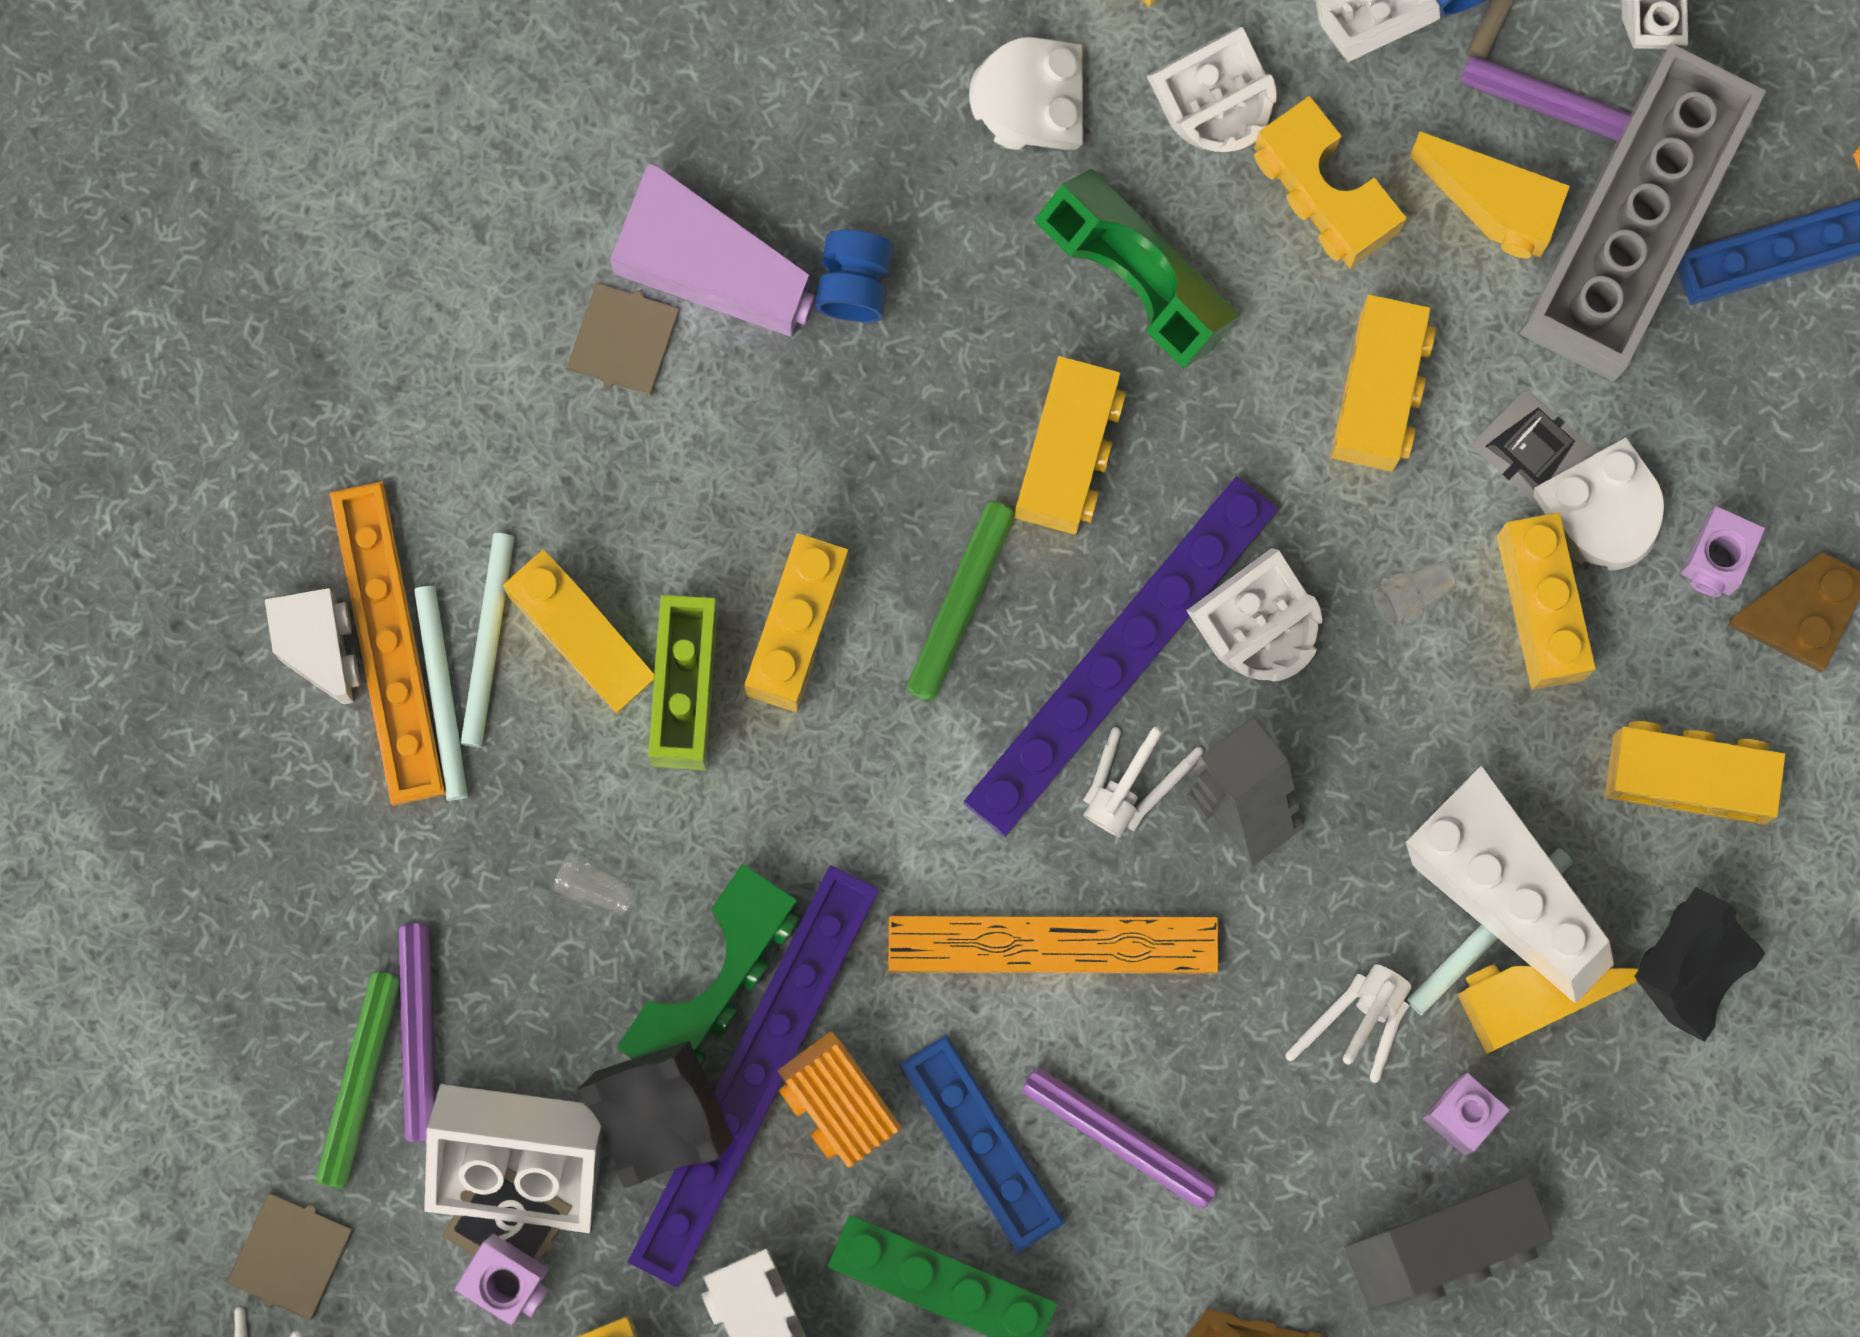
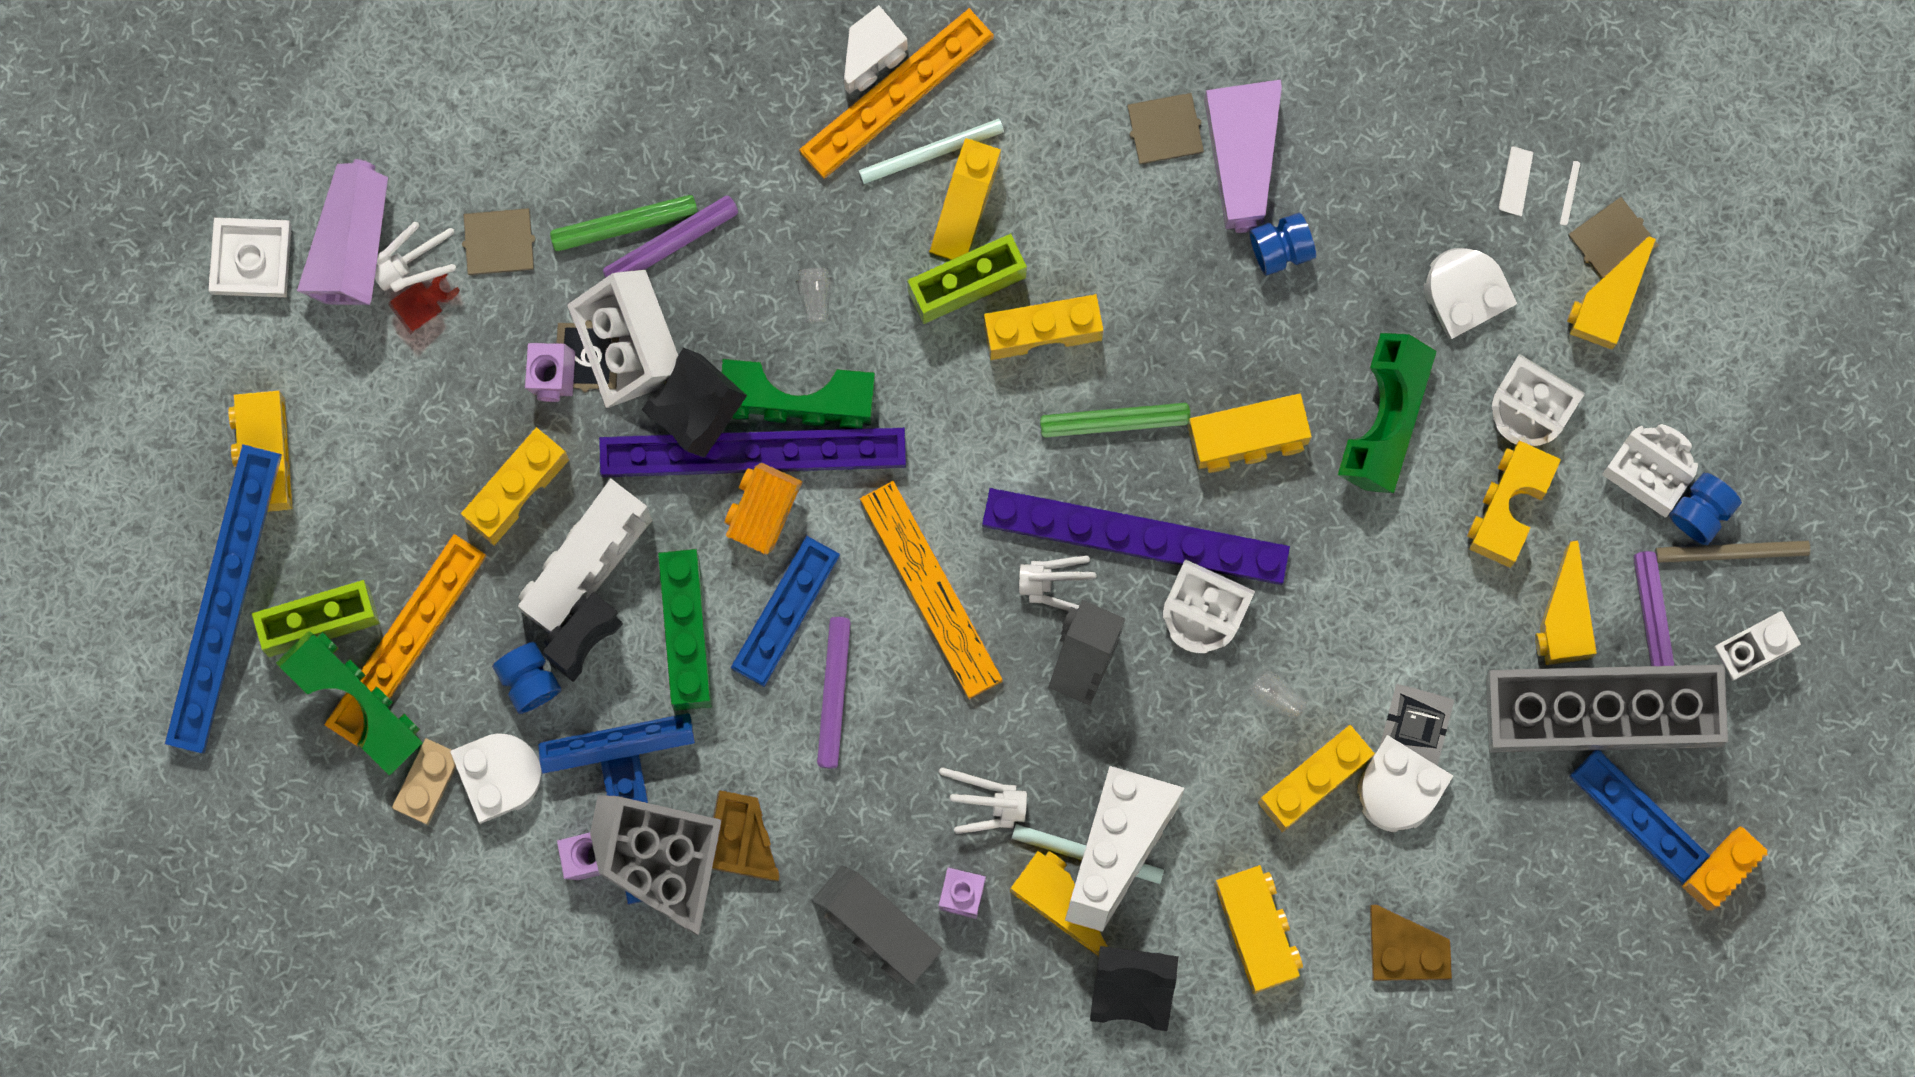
camera: 65 degrees right, 0 degrees up
(441, 693) = (883, 141): light aqua bar -> none
(1383, 383) = (1401, 605): yellow brick -> none
(1736, 536) = (1428, 871): lavender brick -> none

